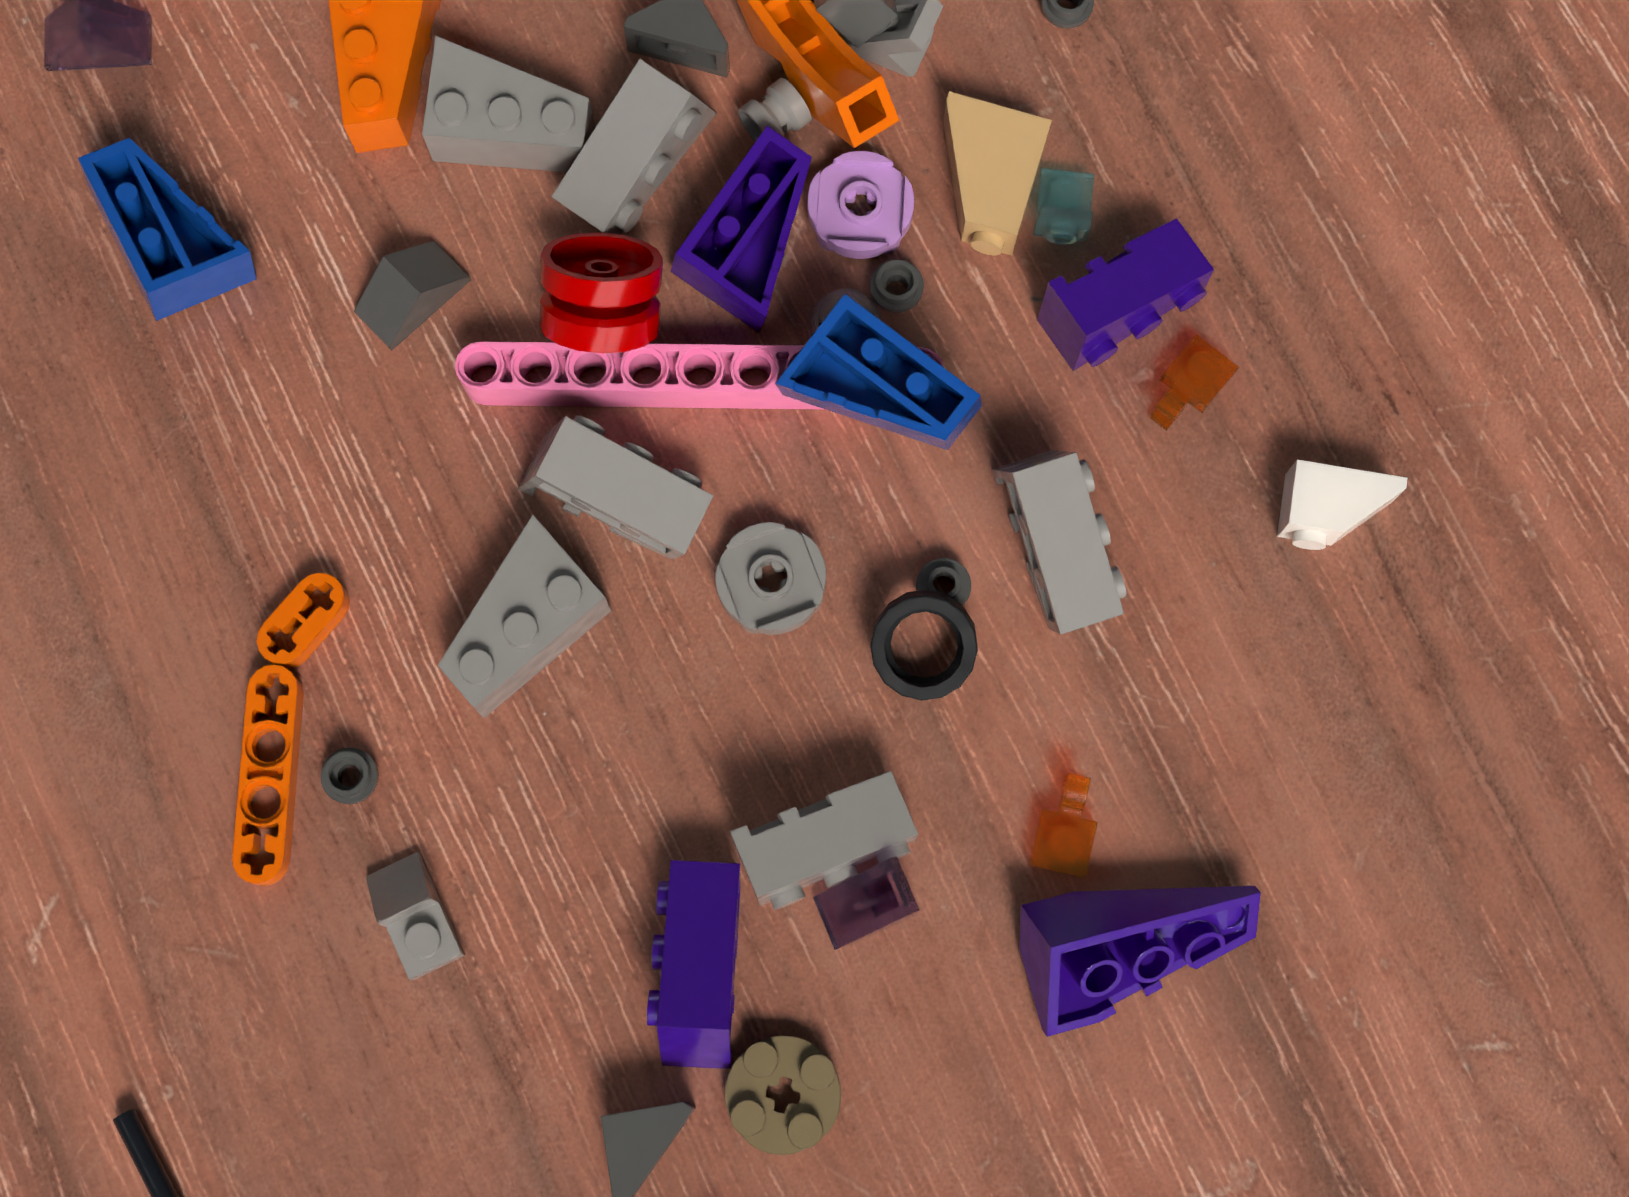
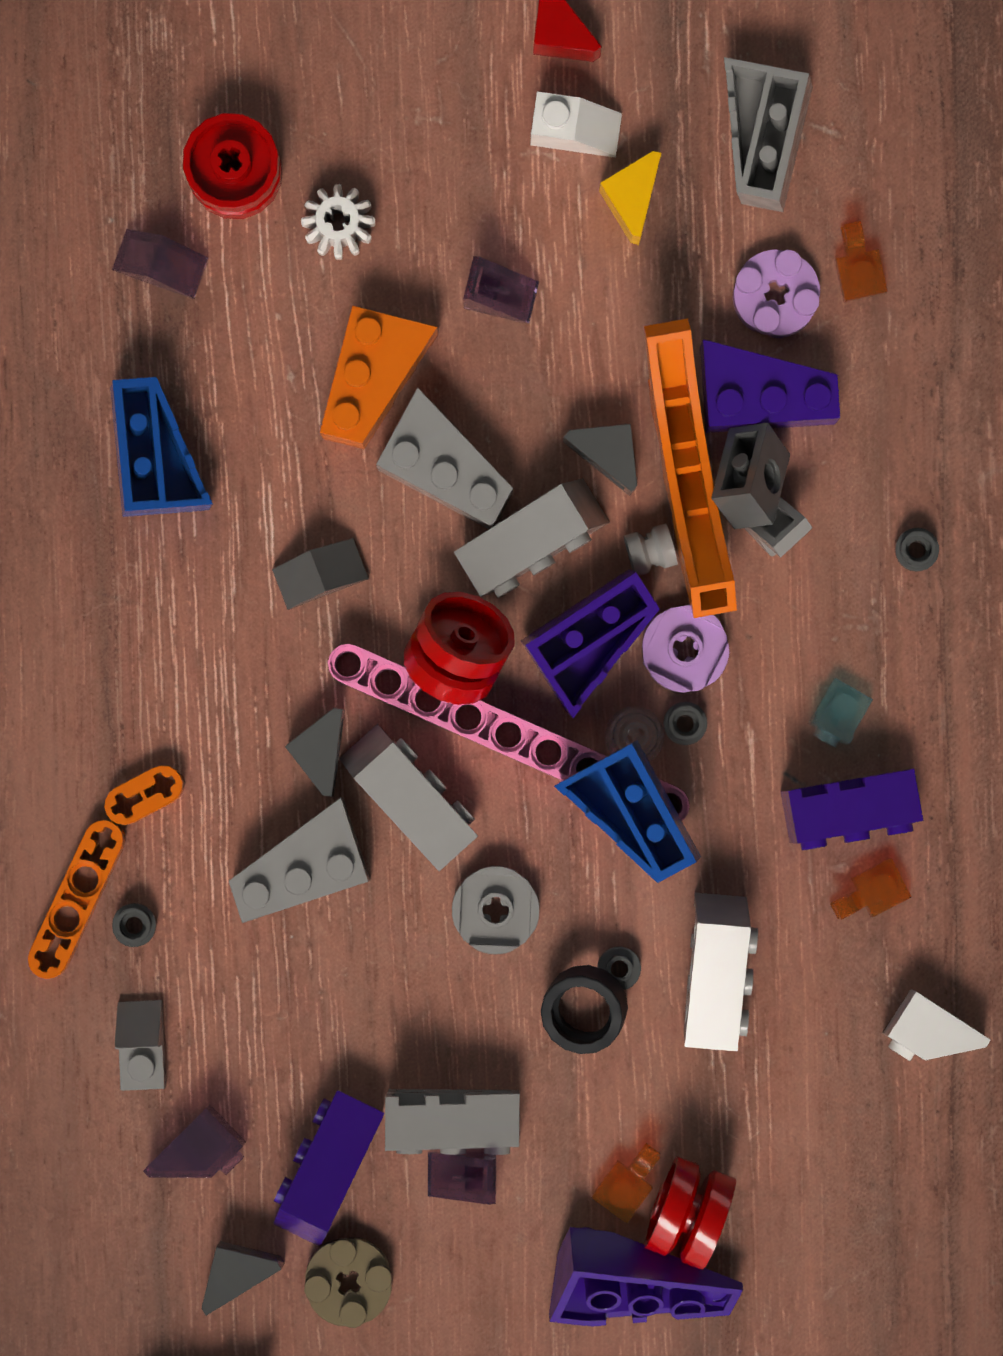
camera: 25 degrees right, 10 degrees up
(486, 482) = (319, 750): none -> dark grey slope
(532, 1009) = (199, 1150): none -> clear purple slope
(992, 169) = (796, 666): tan slope -> none
(1157, 824) = (694, 1214): none -> red wheel

